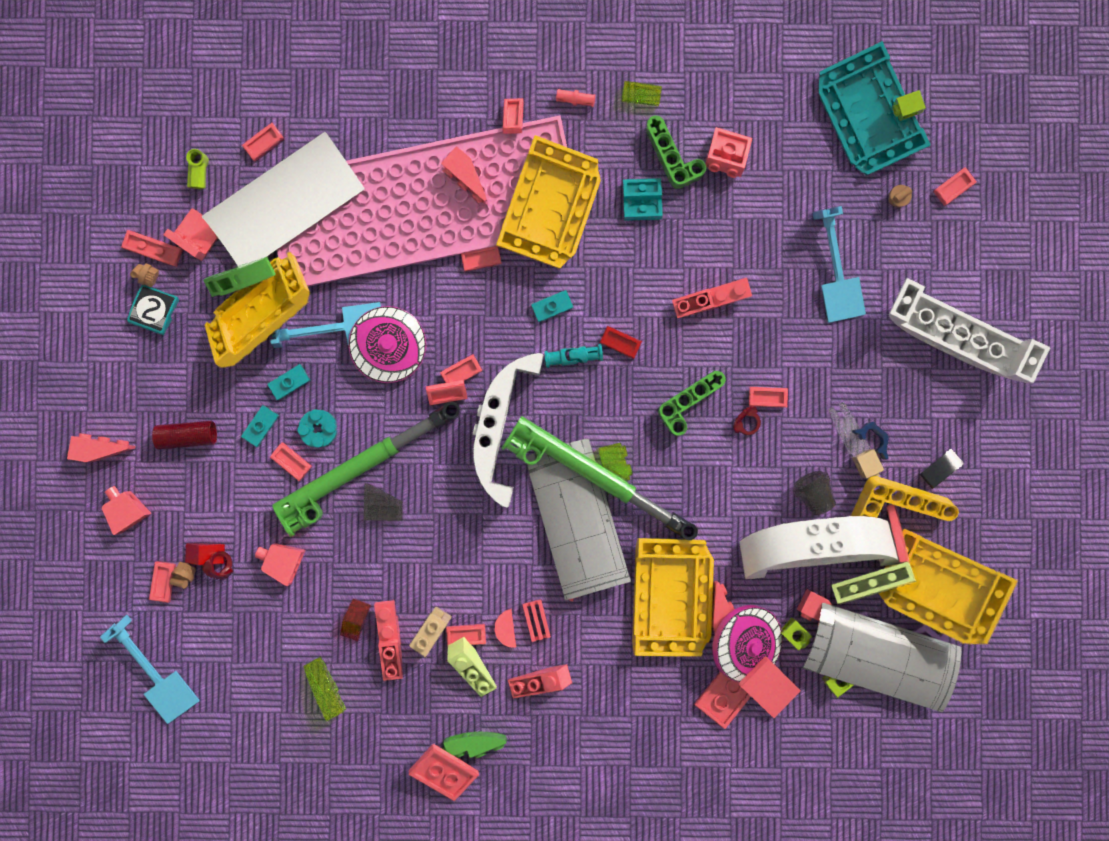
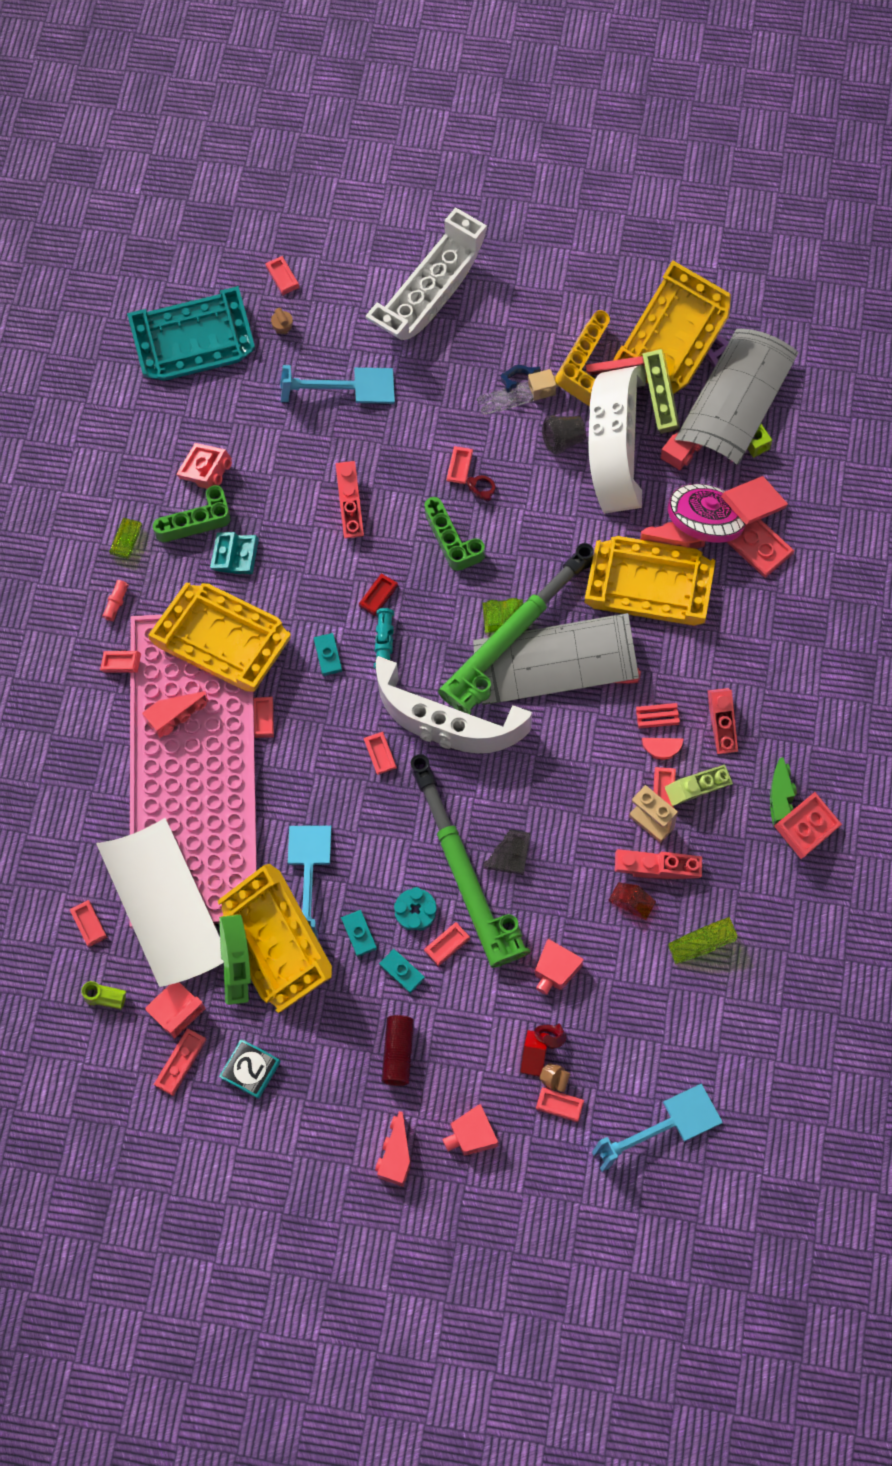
camera: 80 degrees left, 20 degrees down
(146, 274) = (209, 1068): medium nougat piece -> none
(387, 344) = (337, 822): dish -> none
(446, 392) = (400, 769): coral tile -> none
(788, 630) = (696, 474): lime brick -> none
(908, 105) = (196, 298): lime brick -> none
(941, 468) = (558, 322): black slope -> none

